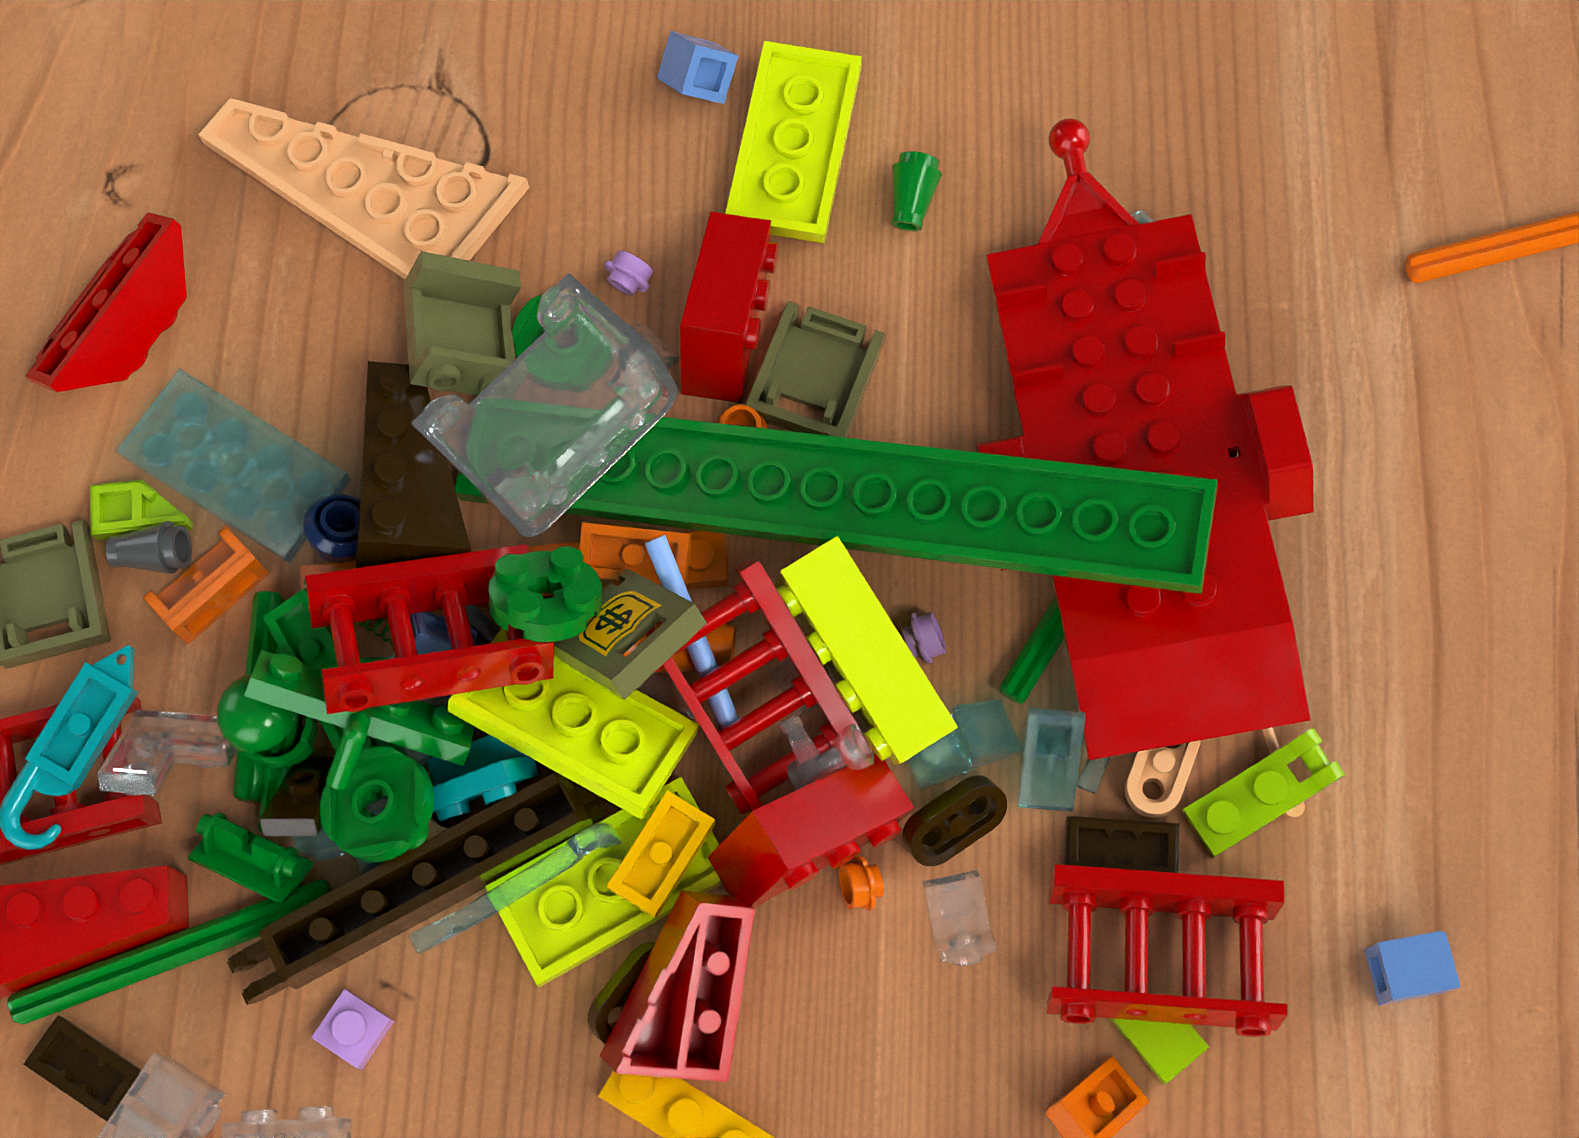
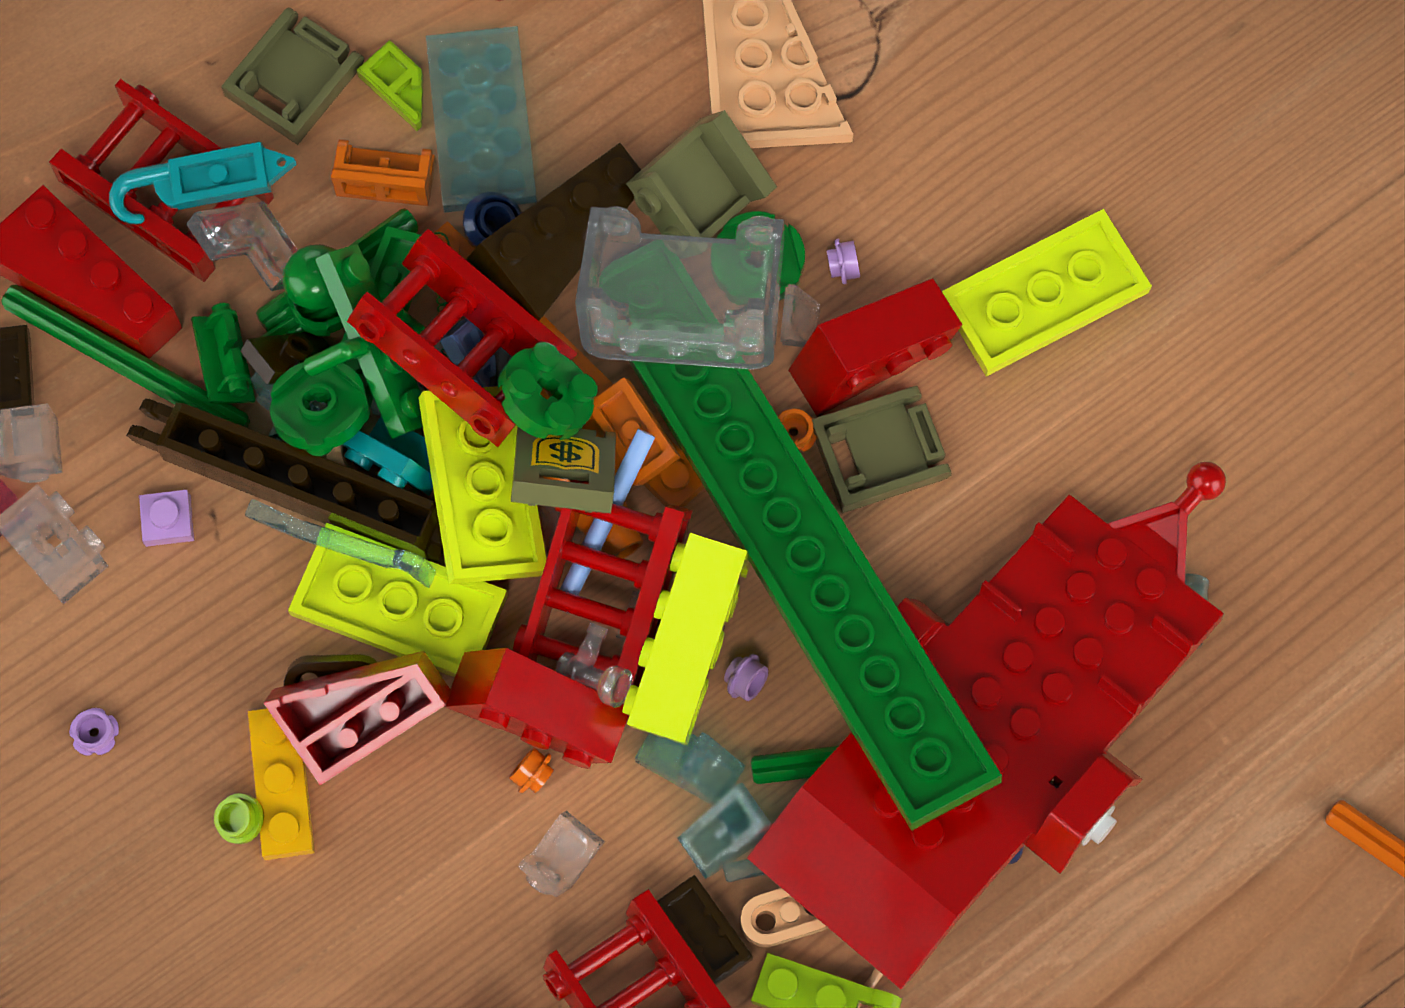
camera: 45 degrees right, 0 degrees up
(153, 548) = (381, 119): dark grey cone -> none
(661, 854) = (439, 618): yellow plate -> none
(697, 67) = (1043, 179): medium blue panel -> none
(914, 186) = (1082, 403): green cone -> none
(954, 822) = (628, 800): dark brown plate -> none

